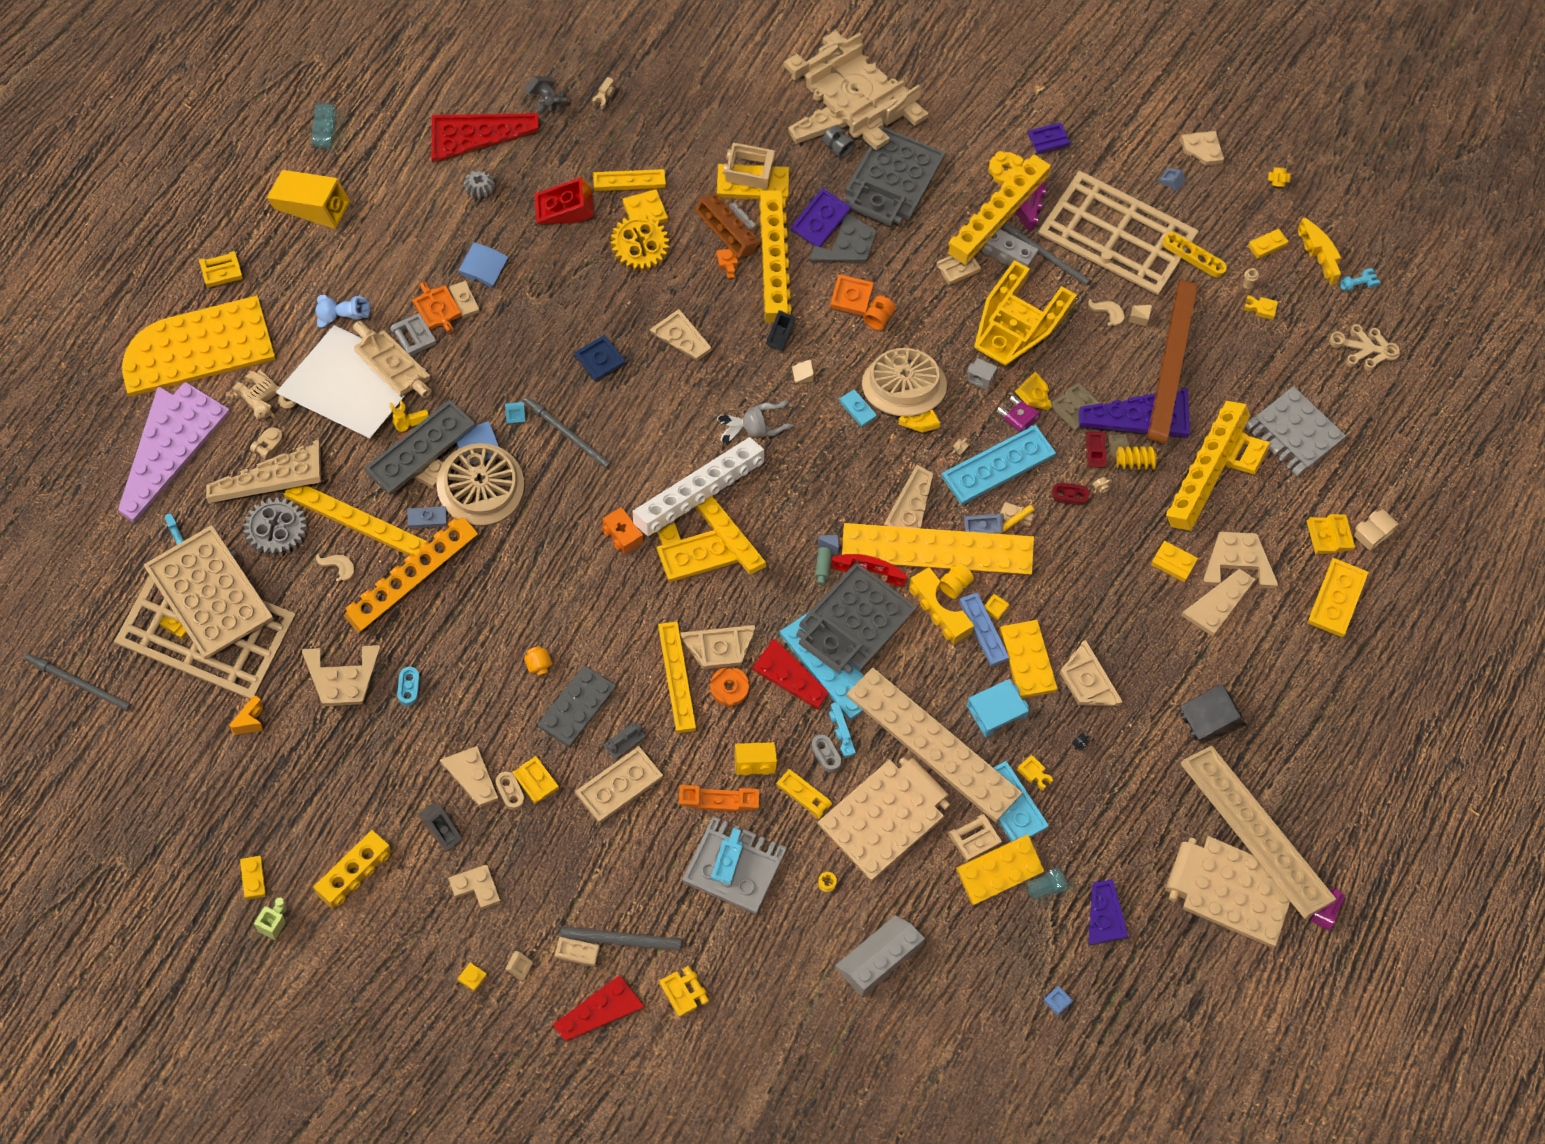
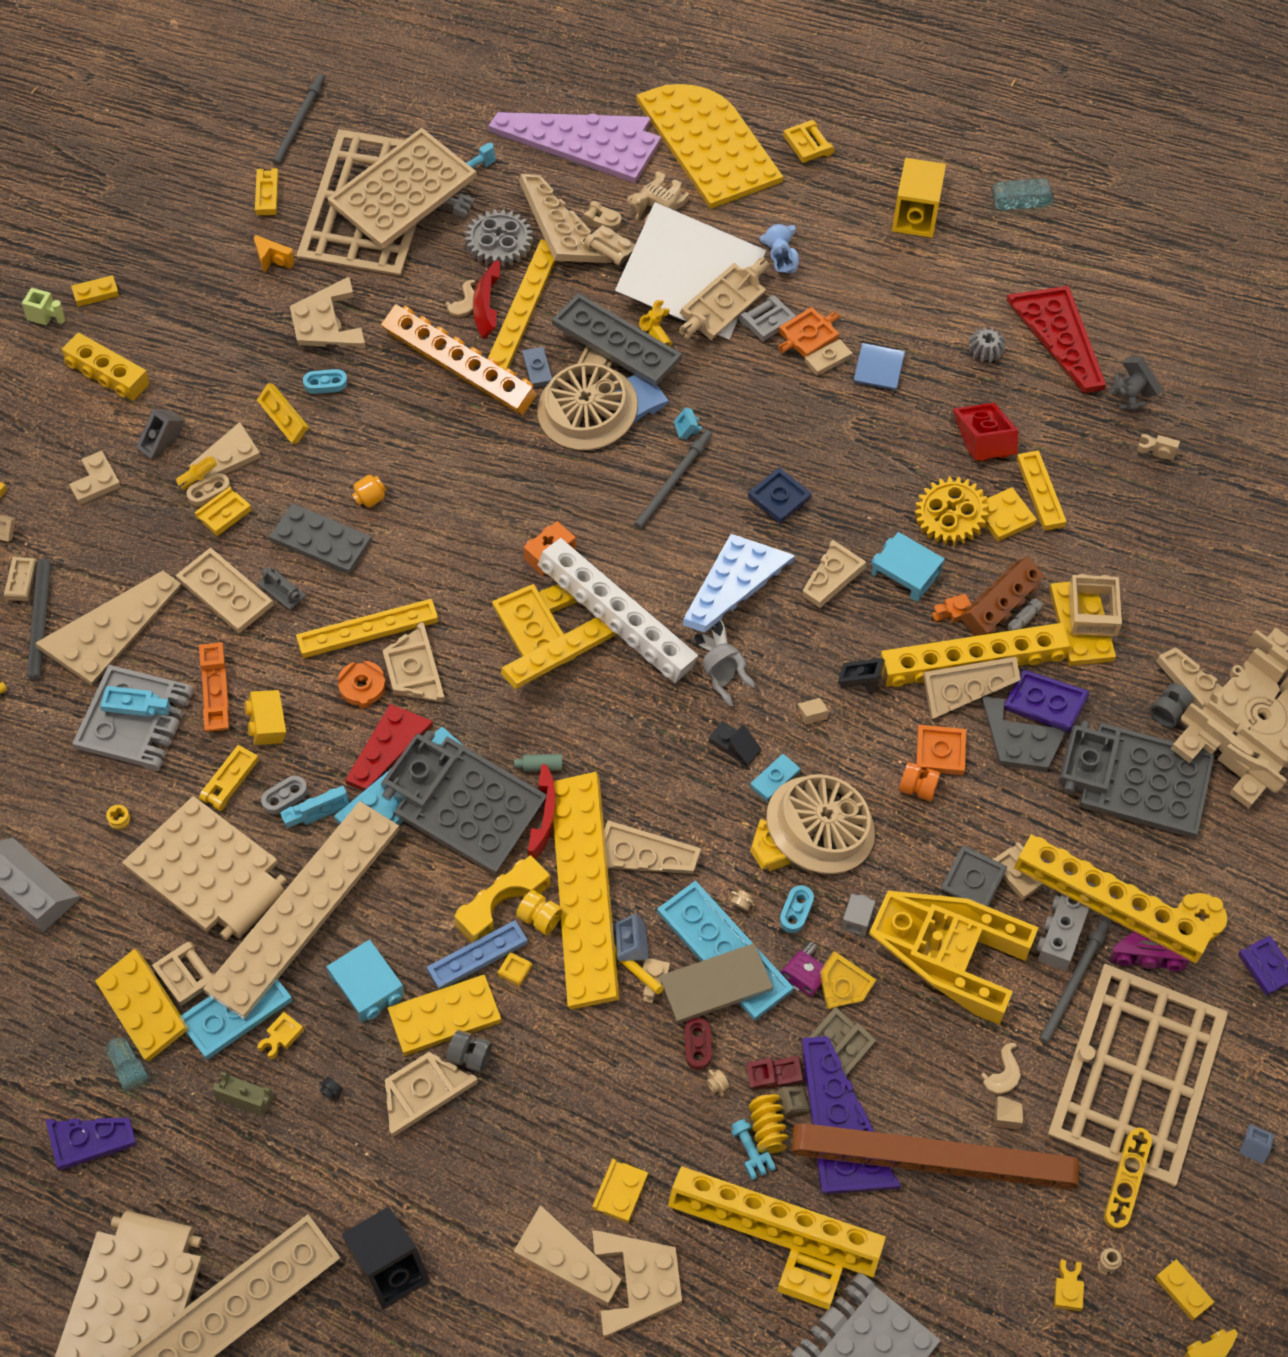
camera: 85 degrees right, 5 degrees down
(166, 716) = (266, 192): none -> yellow plate
(307, 438) = (610, 244): none -> tan plate
(345, 547) = (484, 316): none -> red slope
(438, 723) = (282, 413): none -> yellow plate
(494, 795) = (196, 472): none -> yellow axle
(646, 883) = (105, 632): none -> tan wing
(675, 398) = (735, 576): none -> wing
(685, 282) = (908, 564): none -> medium azure panel
(800, 264) = (963, 684): none -> tan wing
(823, 430) = (735, 743): none -> black slope
(830, 542) = (570, 764): sand blue slope -> none
(961, 295) = (974, 877): none -> dark grey plate
(972, 412) = (796, 910): none -> medium azure plate
(1029, 471) = (715, 983): none -> dark tan tile
(1063, 641) = (460, 1050): none -> dark grey wheel
(1079, 802) = (243, 1094): none -> olive hinge
(1138, 476) = (741, 1129): none -> medium azure hinge

